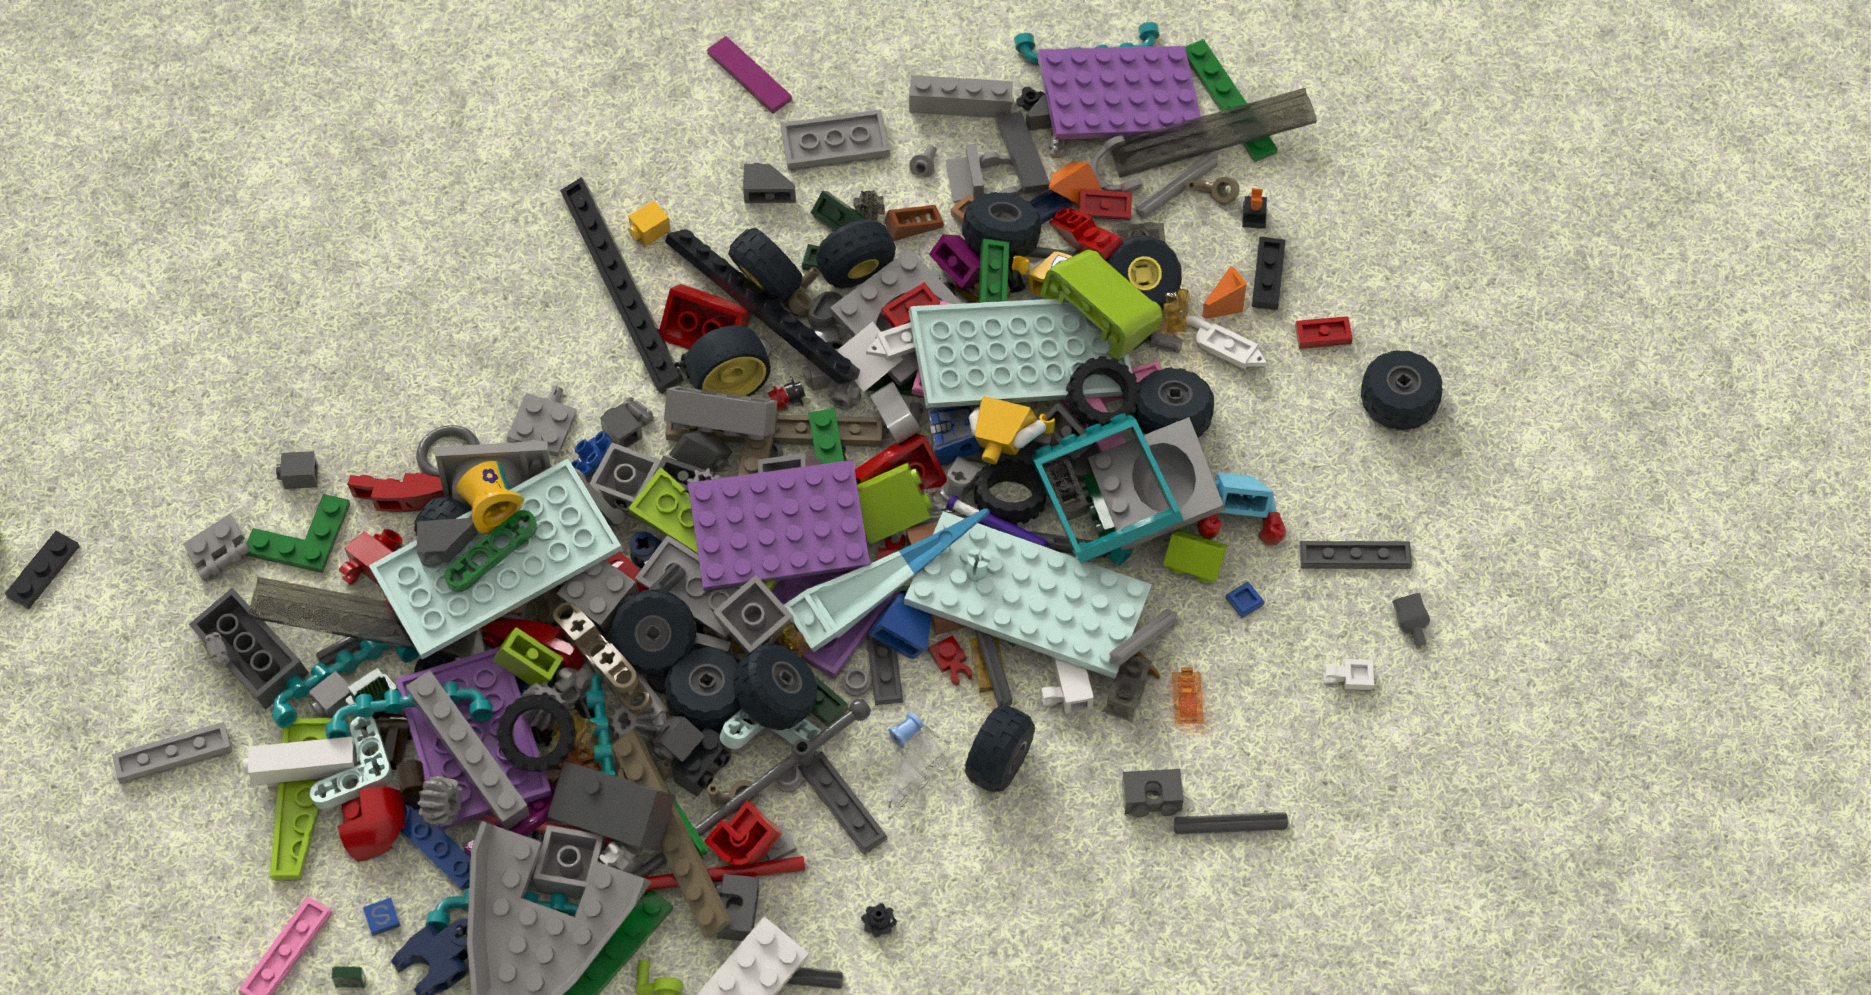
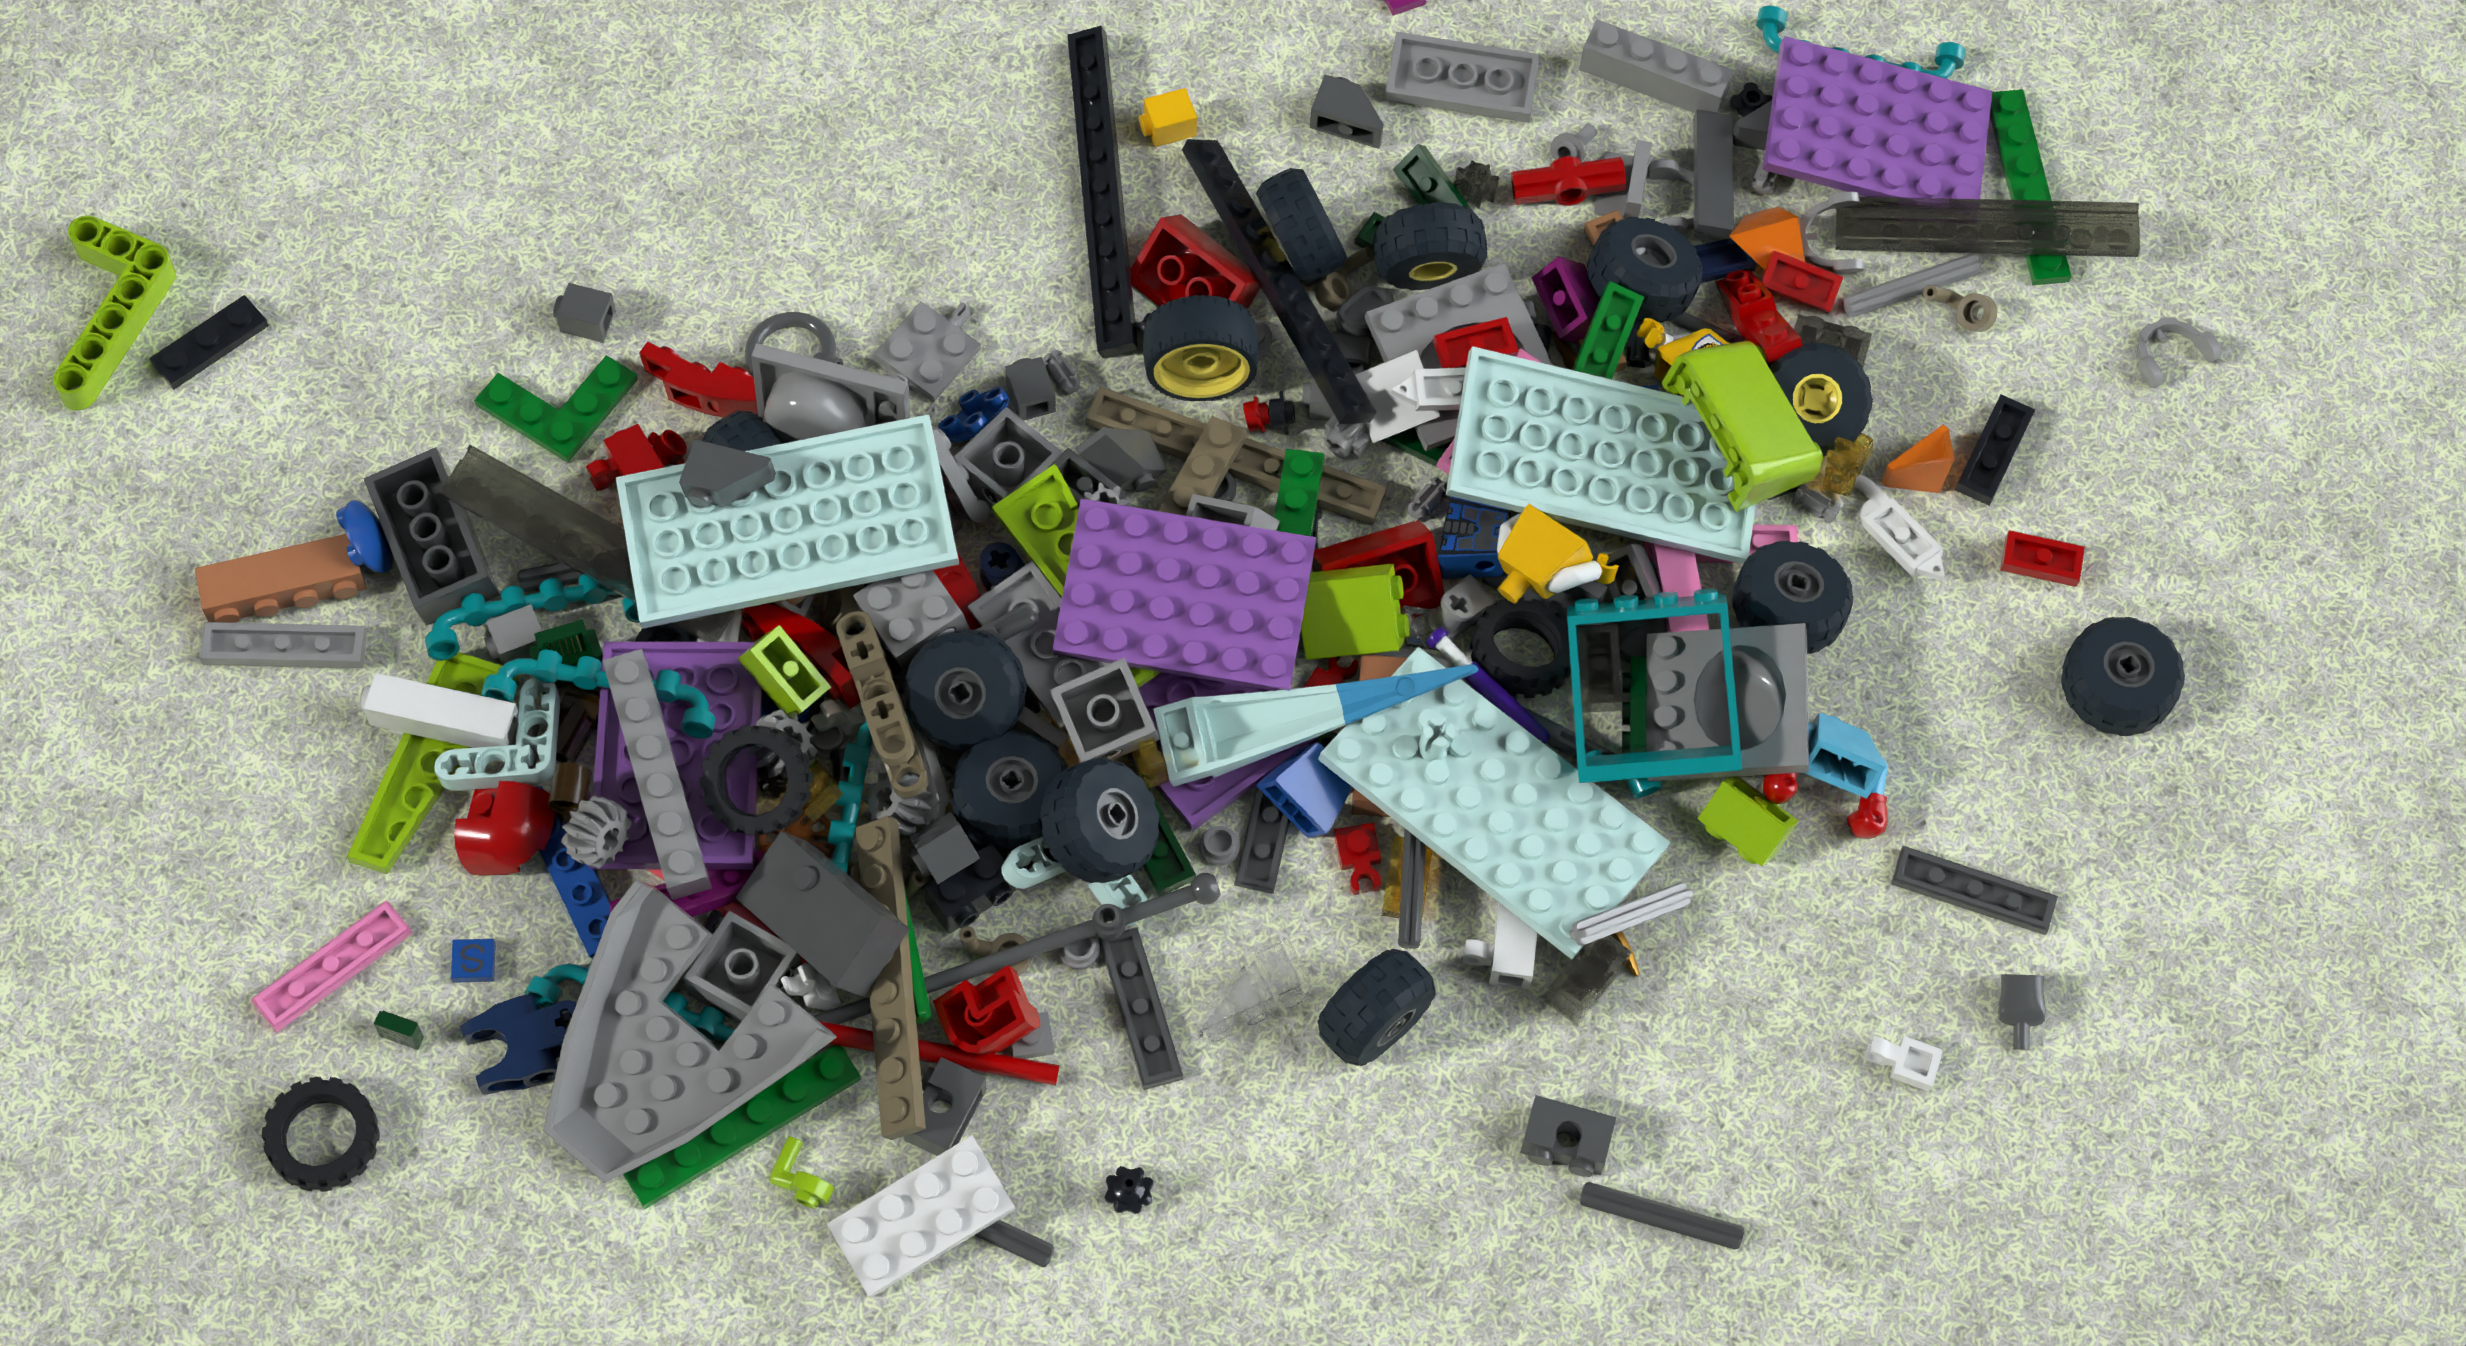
camera: 15 degrees right, 5 degrees up
(154, 709) = (278, 580): none -> nougat brick
(203, 661) = (366, 537): none -> blue dish
(215, 541) = (438, 376): light grey plate -> none
(217, 649) = (385, 525): light grey piece -> none
(487, 547) = (778, 503): green beam -> none
(488, 495) = (801, 435): yellow hat -> none
(720, 411) = (1165, 411): light grey brick -> none
(895, 412) = (1405, 486): light grey beam -> none
(900, 229) = (1513, 233): dark orange slope -> none
(905, 729) = (1261, 935): light blue bush -> none
(929, 185) = (1568, 181): none -> red piece
(1109, 368) = (1719, 517): black tyre -> none
(1187, 696) = (1665, 1016): clear orange plate -> none
(1245, 599) = (1795, 904): blue tile -> none
(1254, 210) = (2007, 354): black piece -> none
(1346, 190) = (2147, 366): none -> light grey piece

